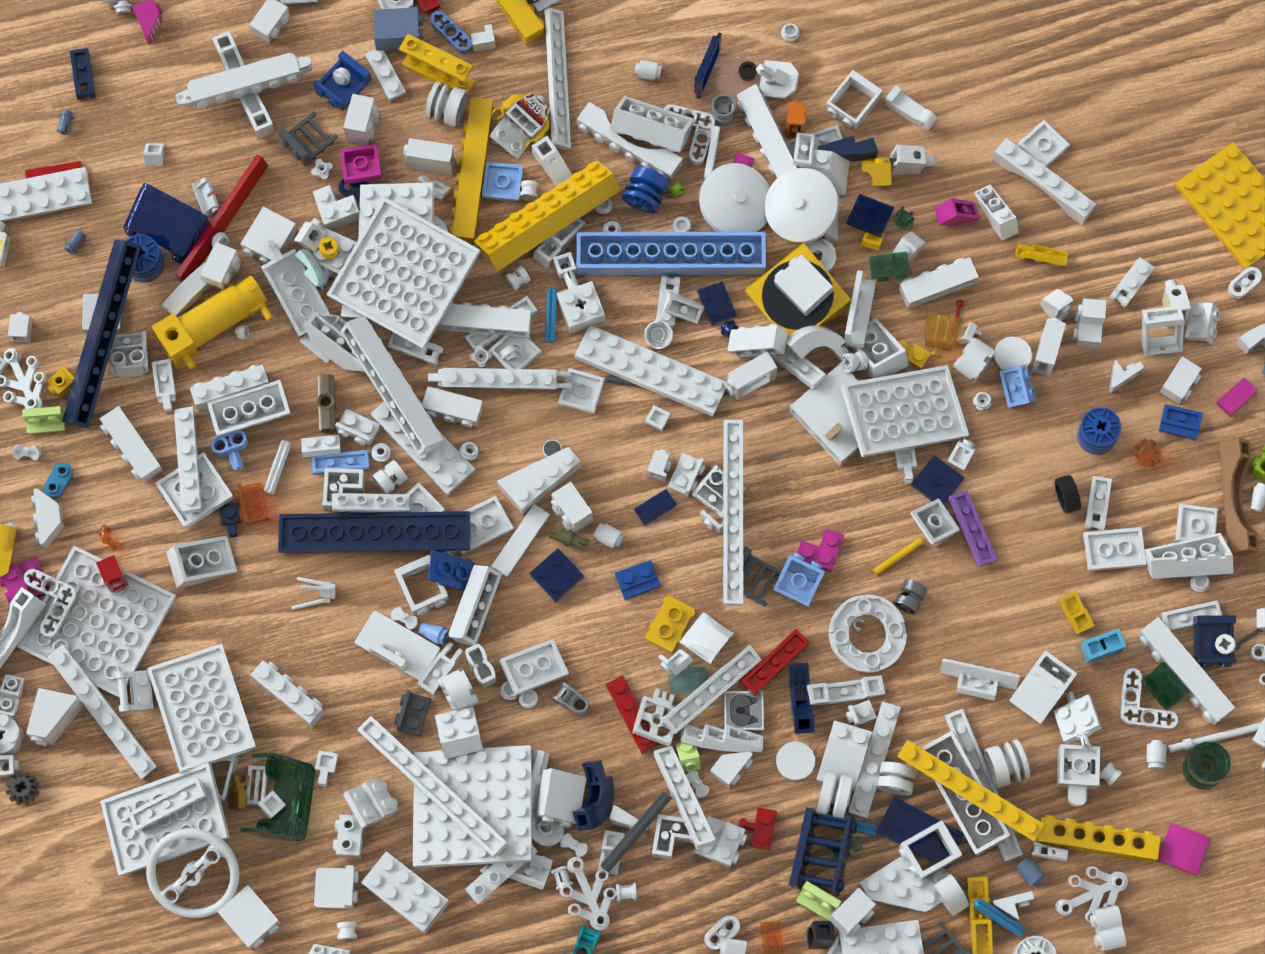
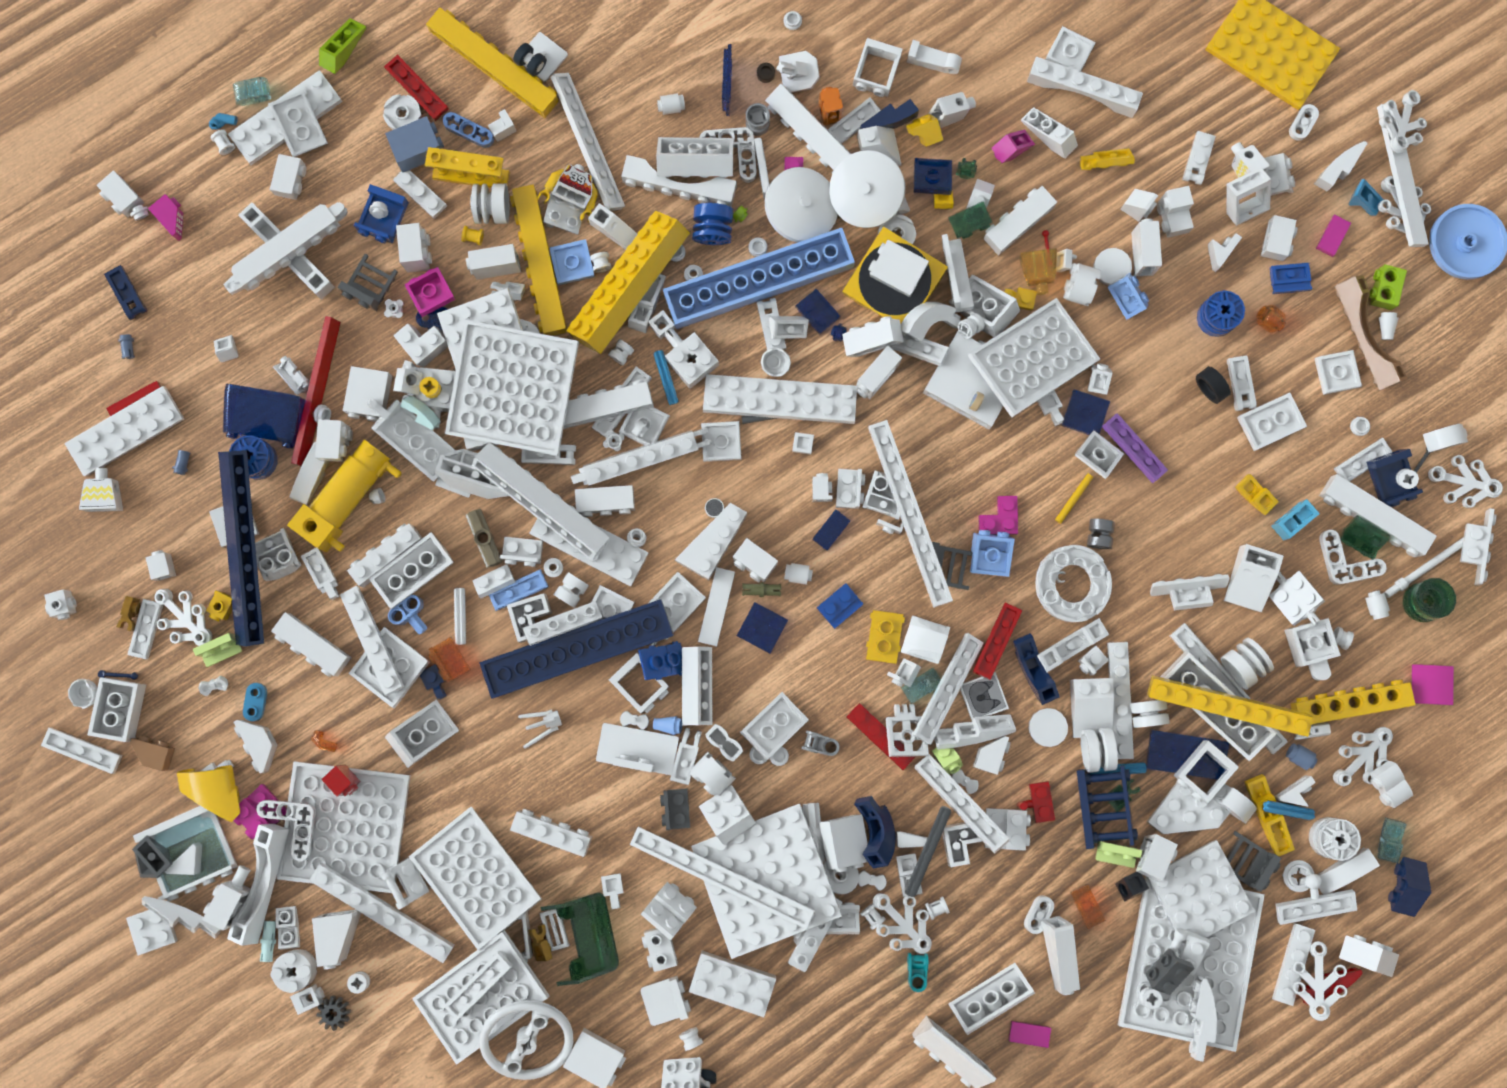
camera: 20 degrees left, 10 degrees up
(59, 771) = (363, 982): none -> white wheel
(271, 804) = (575, 945): white plate -> none
(419, 127) = (472, 235): none -> yellow bush
(804, 150) = (849, 134): white slope -> none
(982, 396) = (1100, 316): white plate -> none
(1190, 558) = (1348, 406): white wedge -> none

